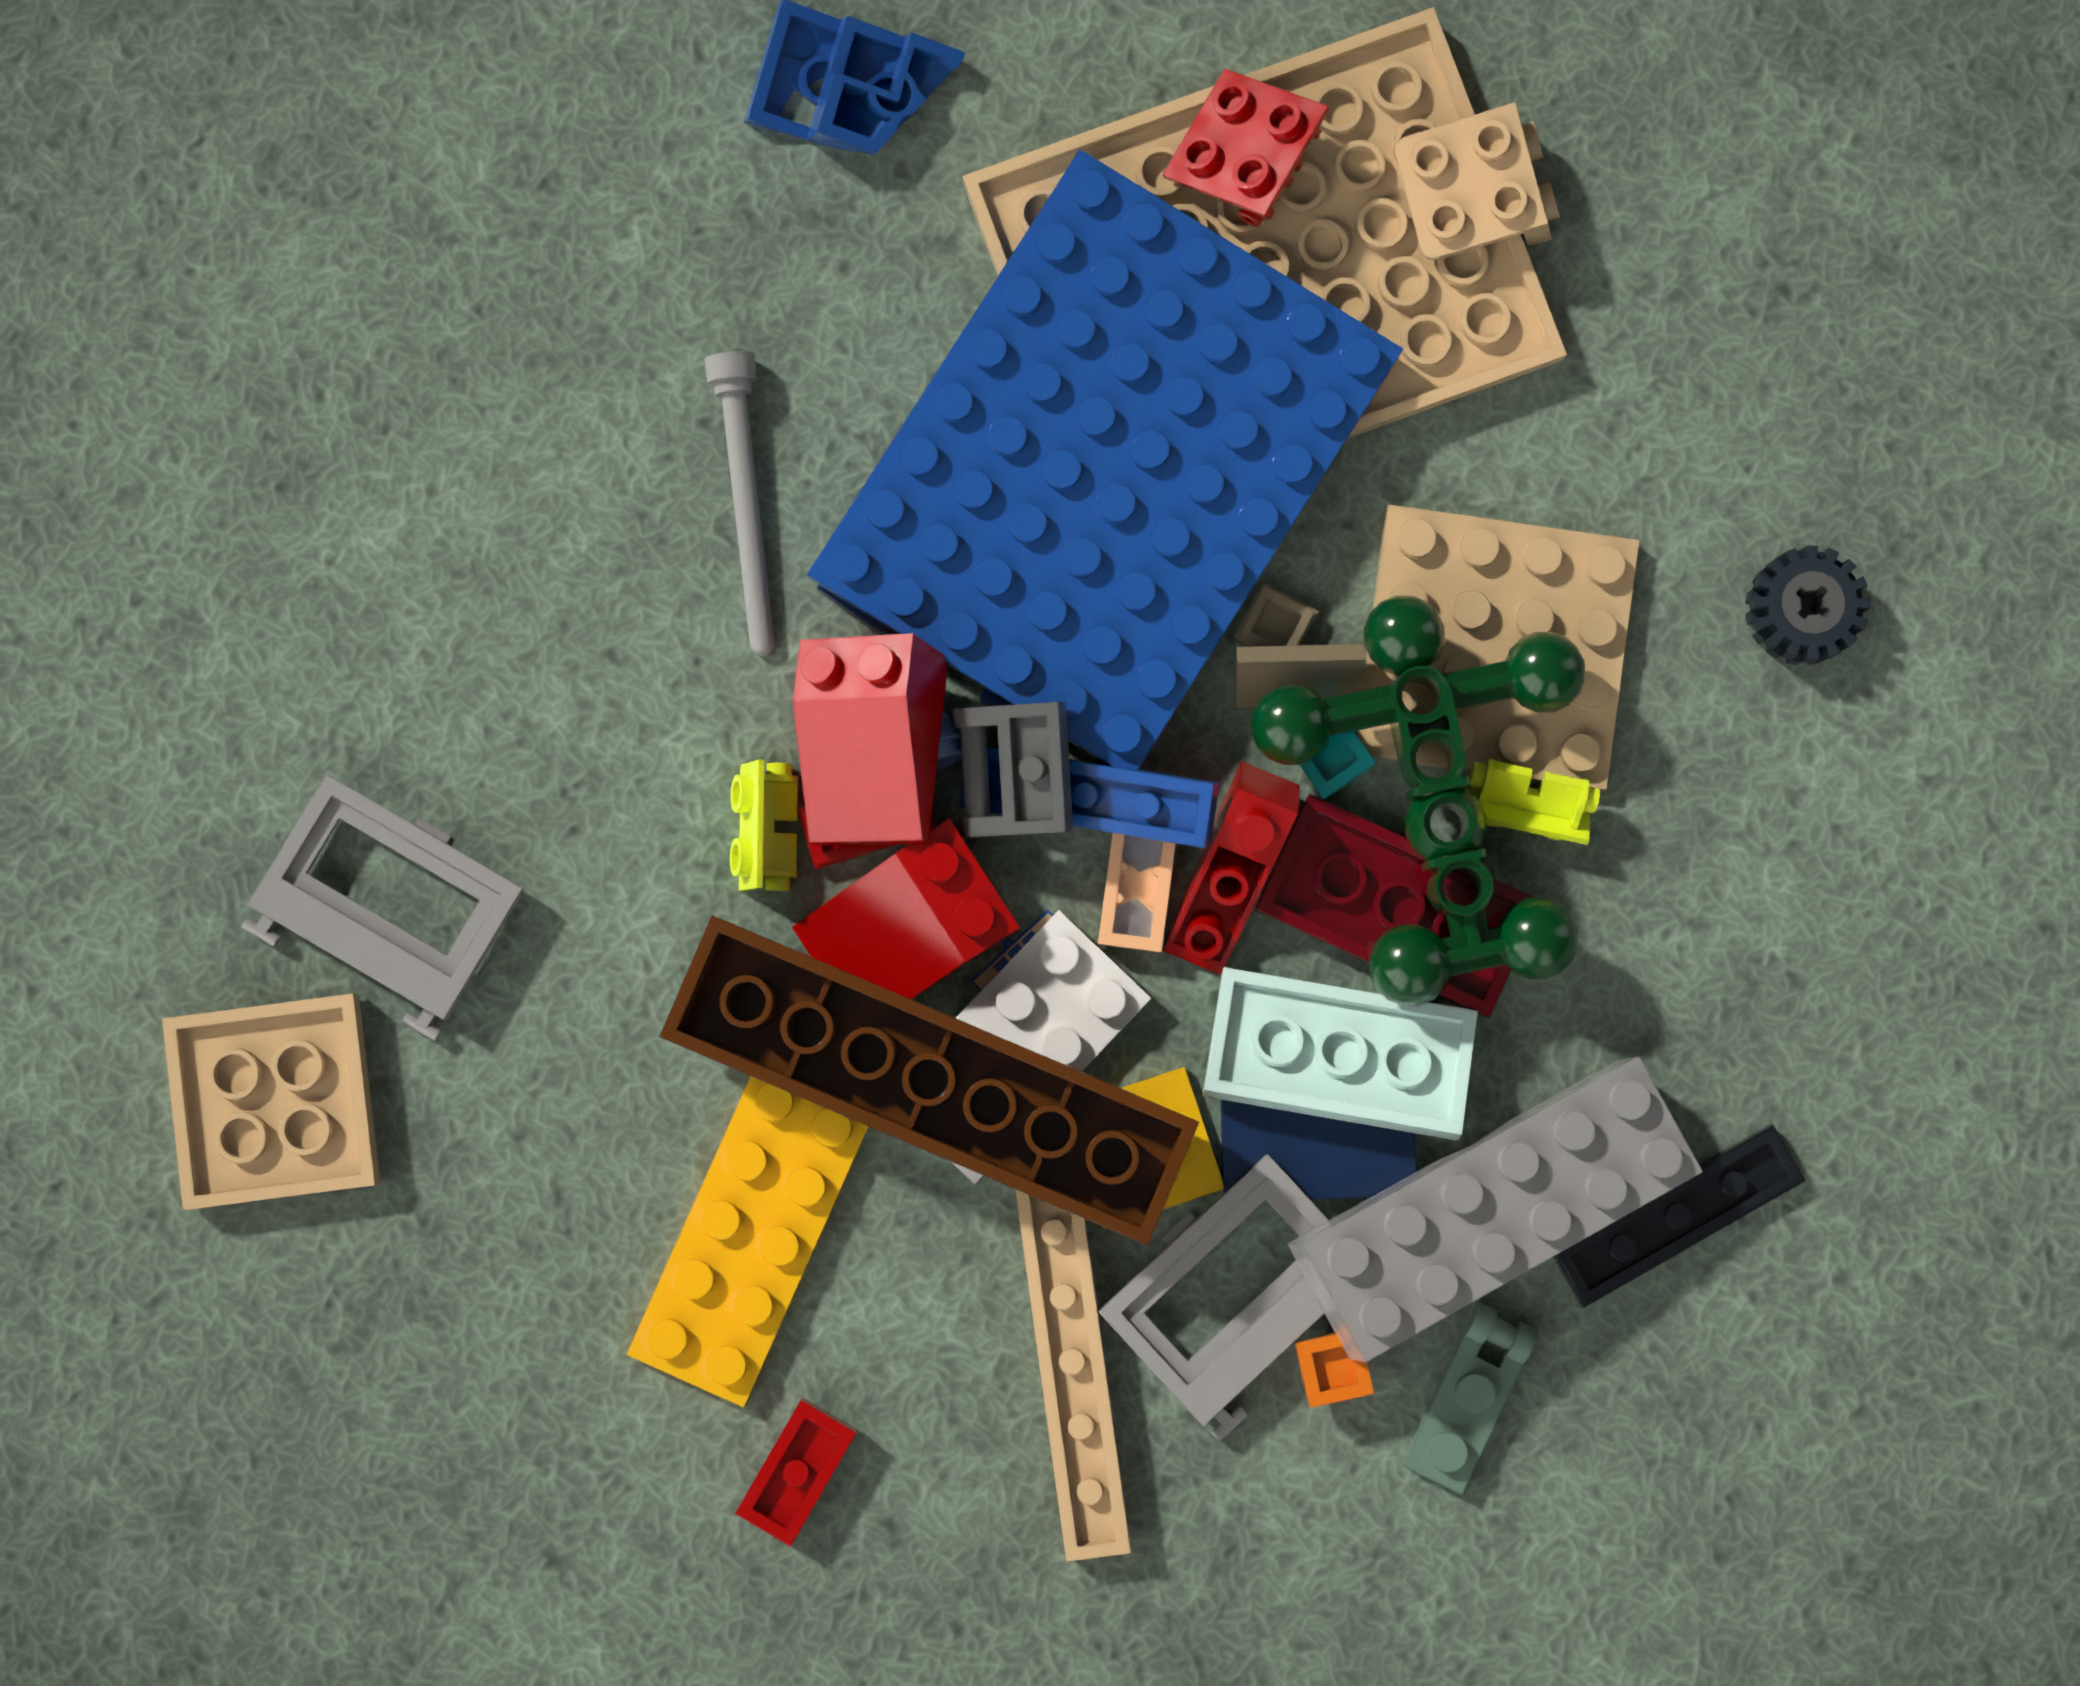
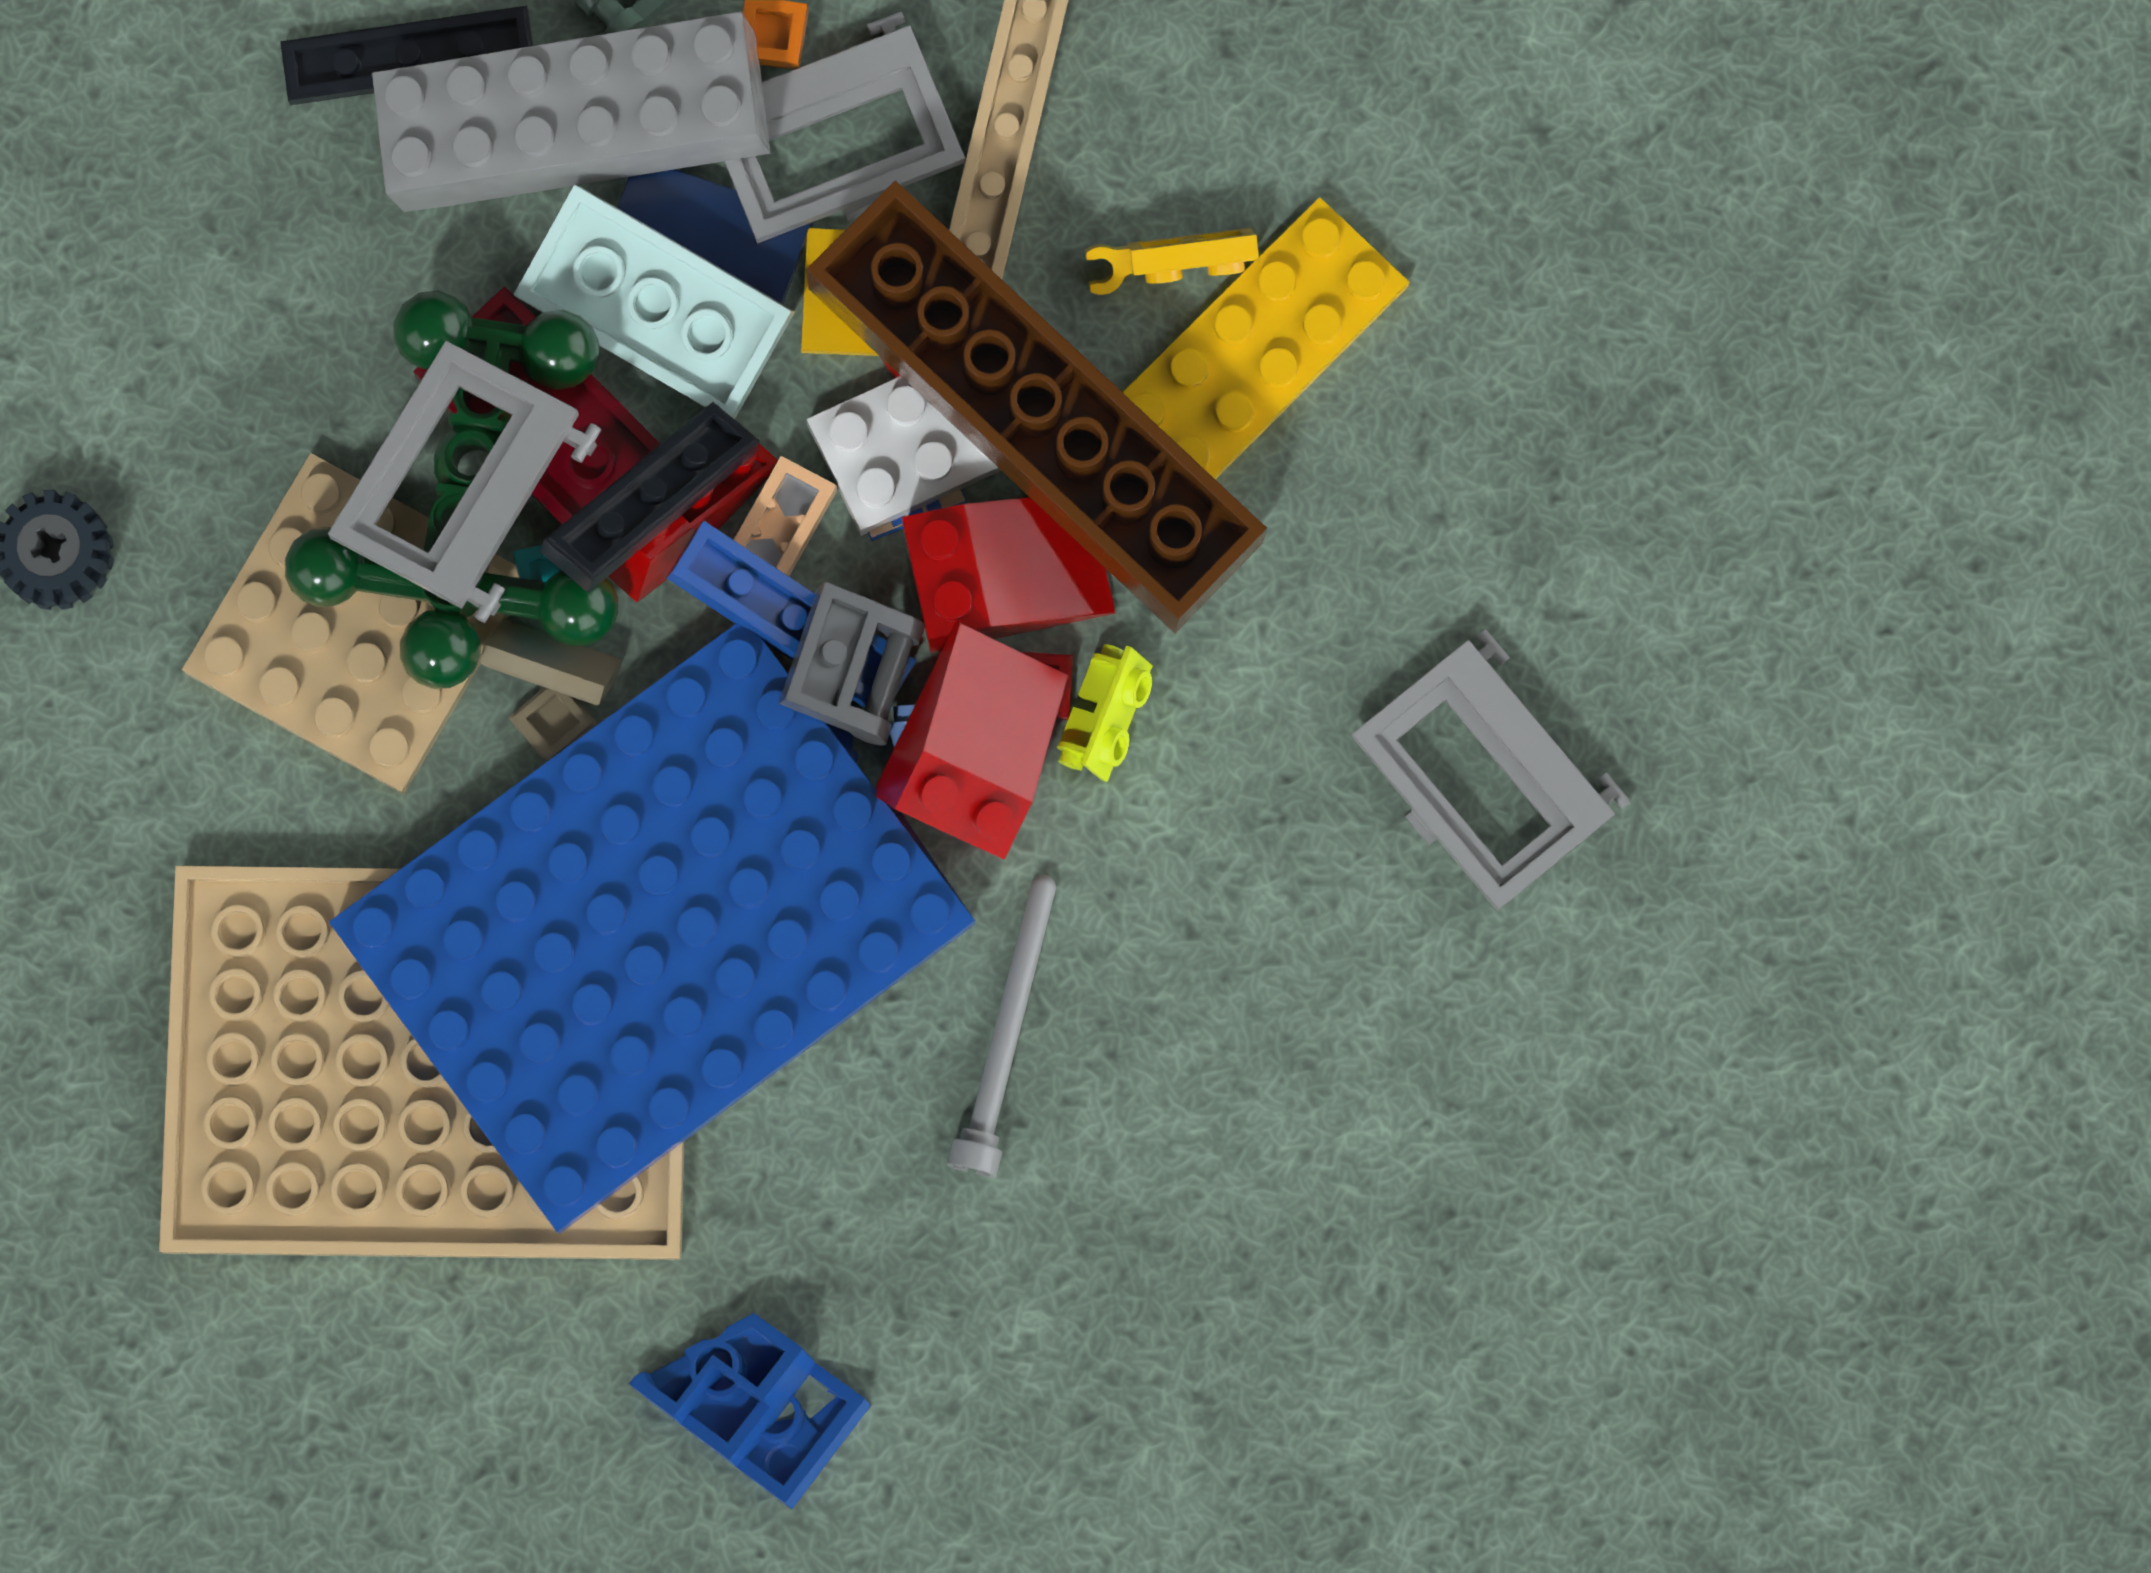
camera: 165 degrees left, 5 degrees down
(271, 1101) = (1657, 629): tan plate -> none
(796, 1471) = (1292, 123): red plate -> none
(865, 1291) = (1166, 258): none -> yellow plate
(1246, 144) = (396, 1176): hinge -> none
(1263, 848) = (649, 497): none -> black tile
(1410, 788) = (494, 496): none -> light grey piece
(1475, 183) = (193, 1058): tan bracket -> none
(1554, 811) = (357, 445): neon yellow hinge -> none

